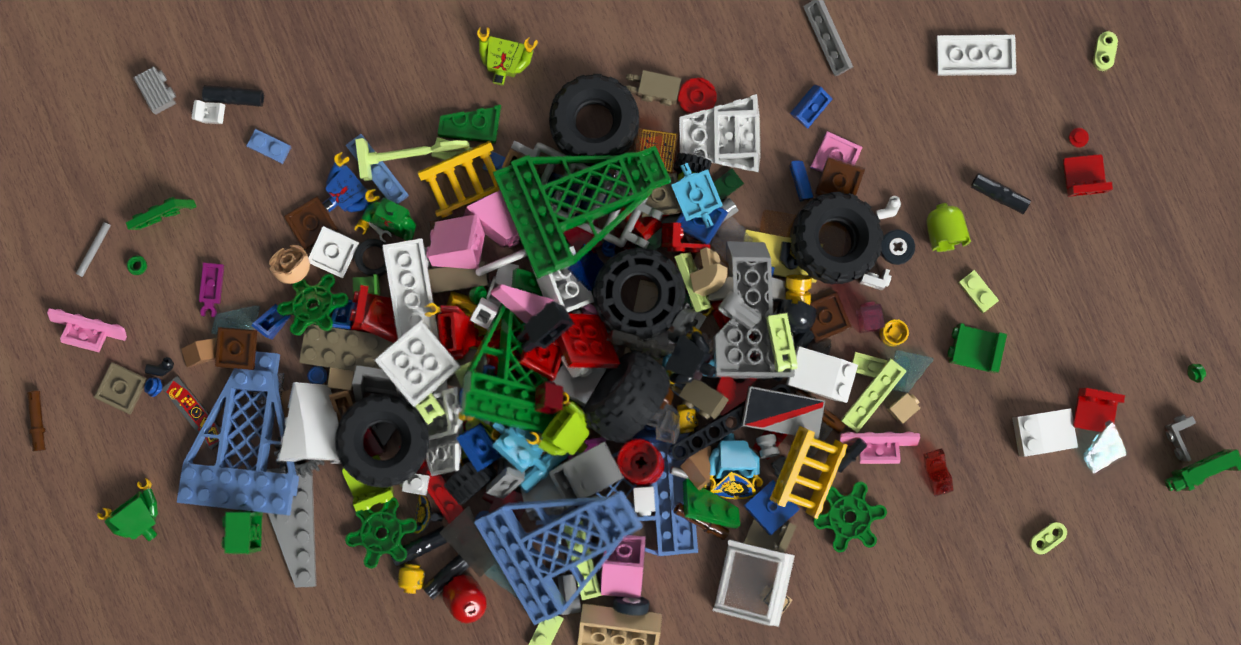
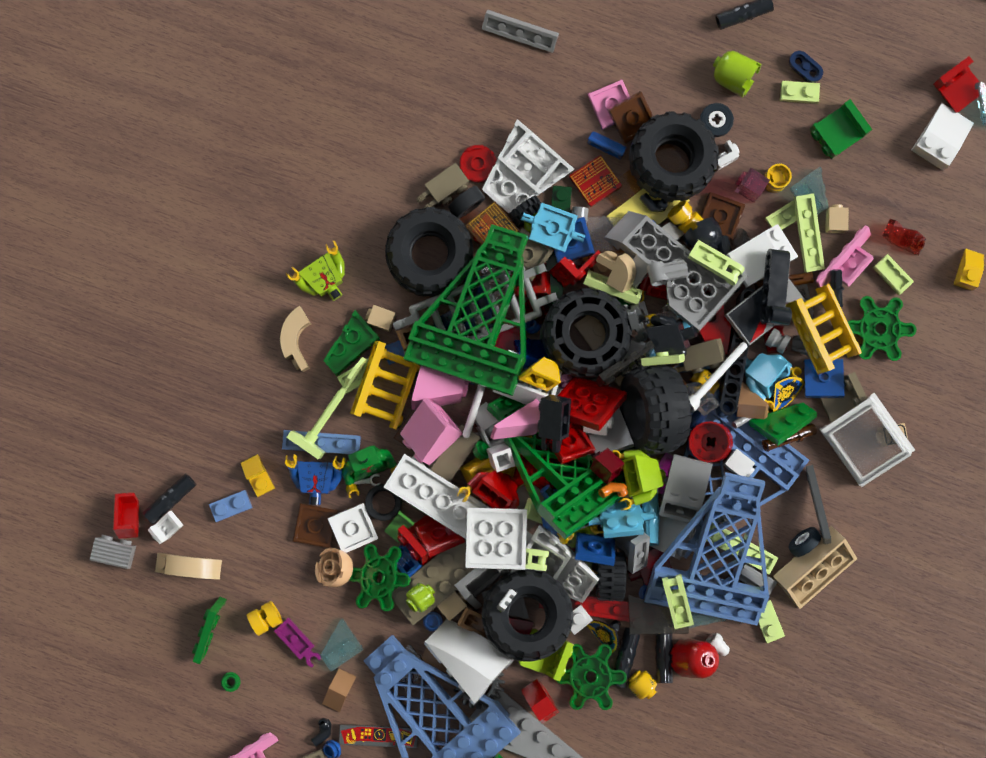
camera: 45 degrees left, 0 degrees up
(93, 249) = (189, 703): light grey bar -> none
(191, 74) = (126, 515): none -> red panel
(194, 155) = (188, 566): none -> tan arch
(206, 247) = (260, 623): none -> yellow wheel
(236, 348) = (360, 662): reddish brown tile -> none
(270, 322) = (363, 620): blue slope -> none
(309, 146) = (257, 475): none -> yellow slope
(323, 348) = (420, 597): none -> lime head
(325, 508) = (540, 701): none -> red brick
(375, 410) = (506, 600): none -> white tile
(437, 73) = (289, 337): none -> tan arch
(493, 607) = (720, 645): none -> white piece
(494, 546) = (678, 602): none -> yellowish green plate
(511, 129) = (380, 318): none -> tan brick
(536, 417) = (612, 487): none -> orange arm
(574, 286) = (542, 374): none -> yellow slope
(624, 568) = (778, 524): bright pink slope -> none
(658, 114) = (466, 202): none -> black tyre
(658, 420) = (695, 398): none -> white piece
(668, 589) = (818, 505): none -> dark grey tile
(669, 367) = (662, 358): none -> yellowish green plate
(765, 197) = (595, 181): none -> red tile
(803, 406) = (775, 289): none -> black beam
(811, 105) = (558, 88): blue slope -> none
(891, 208) = (685, 100): white arm -> none
(901, 489) = (893, 274): none -> yellowish green plate
(959, 546) = (970, 270): none -> yellow slope
(1004, 279) = (806, 66): none -> dark blue plate

